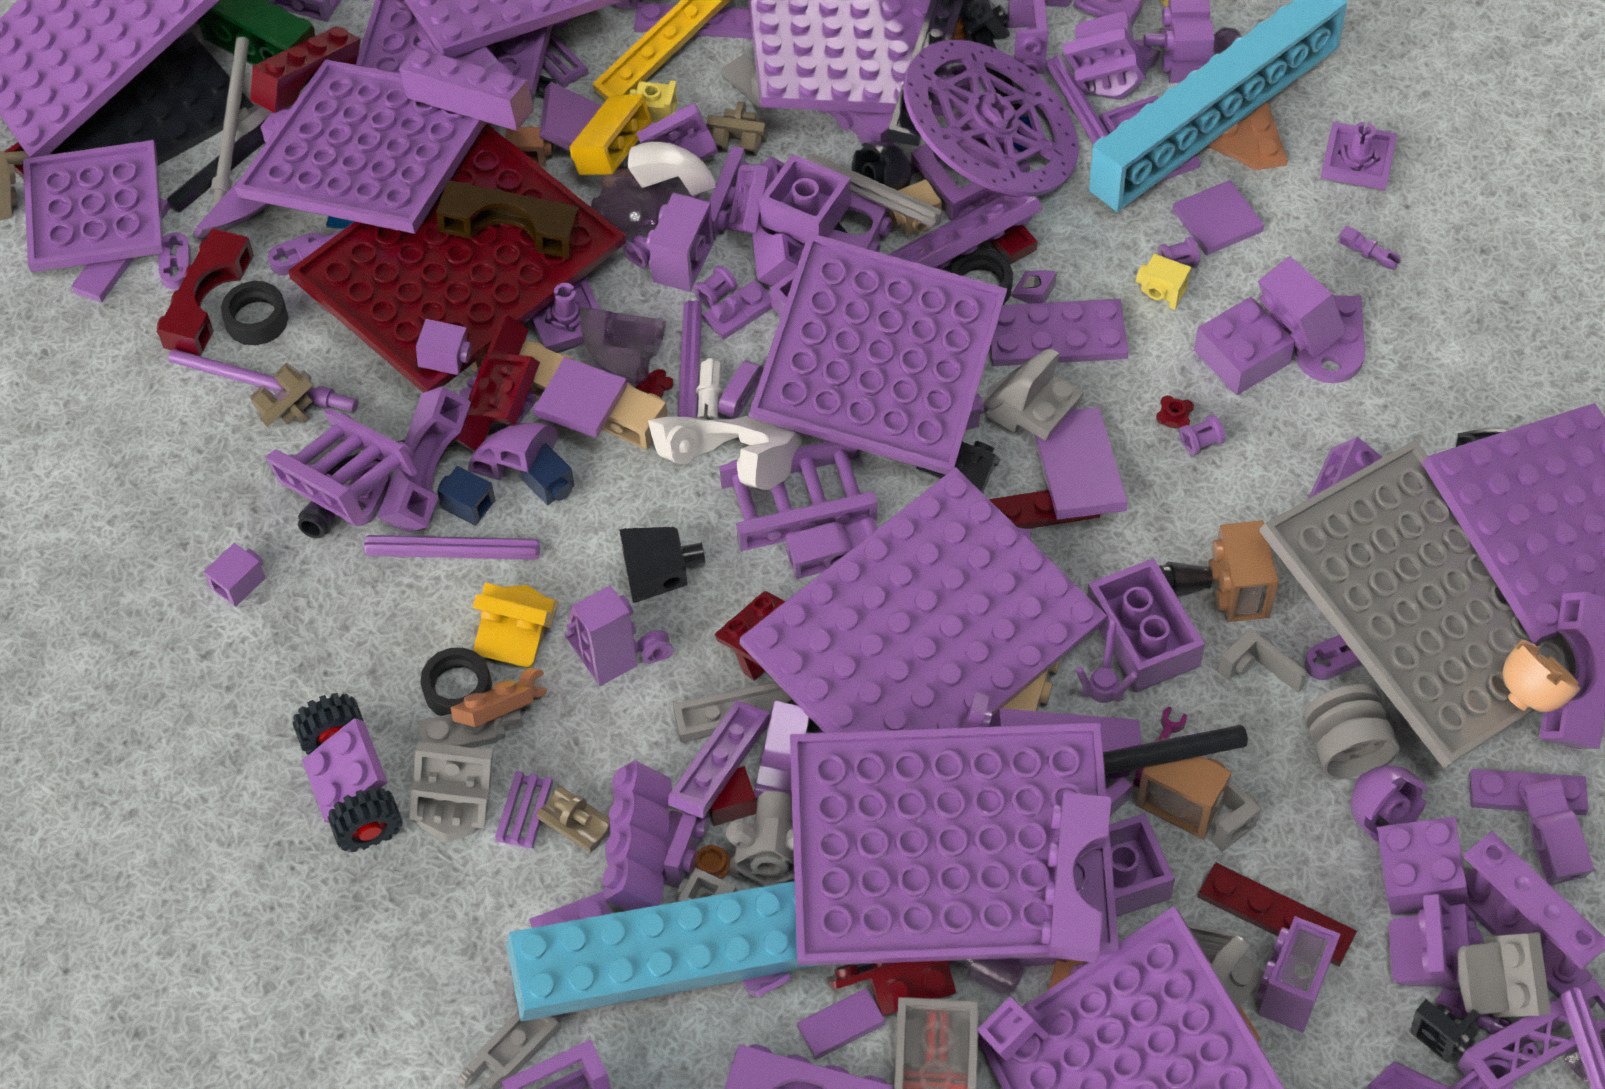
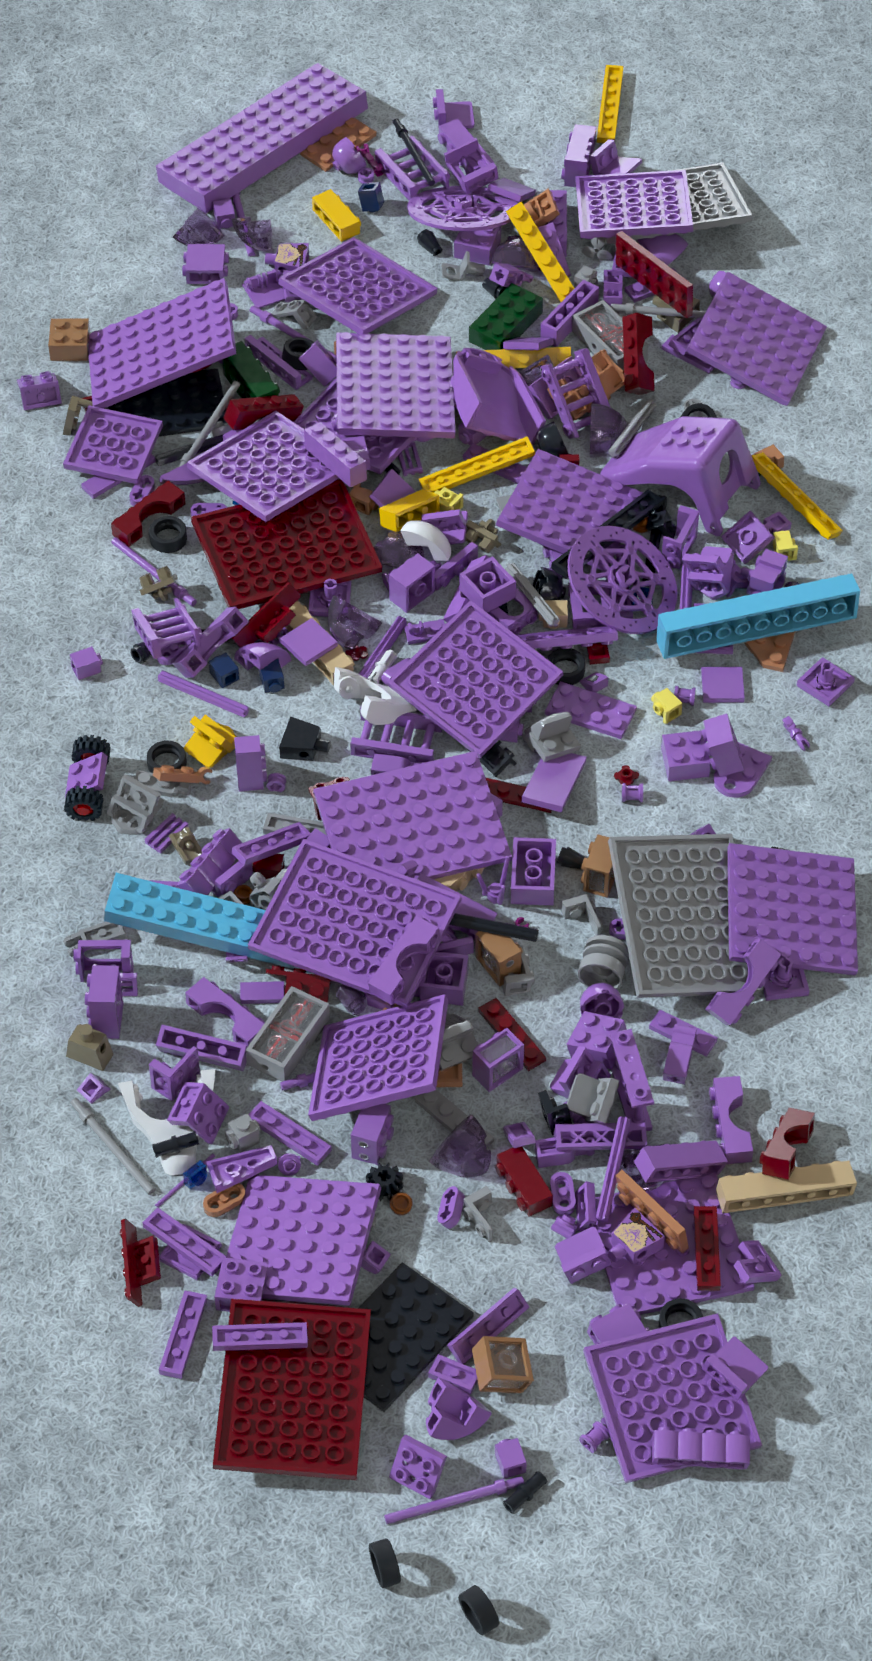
camera: 25 degrees right, 5 degrees down
(443, 347) = (247, 586): medium lavender brick -> none
(470, 208) = (302, 520): dark brown arch -> none
(715, 286) = (426, 614): medium lavender bush -> none
(746, 197) = (456, 577): medium lavender plate -> none
(1011, 1027) = (336, 1019): medium lavender bracket -> none
(1537, 680) = (711, 973): light nougat cylinder -> none

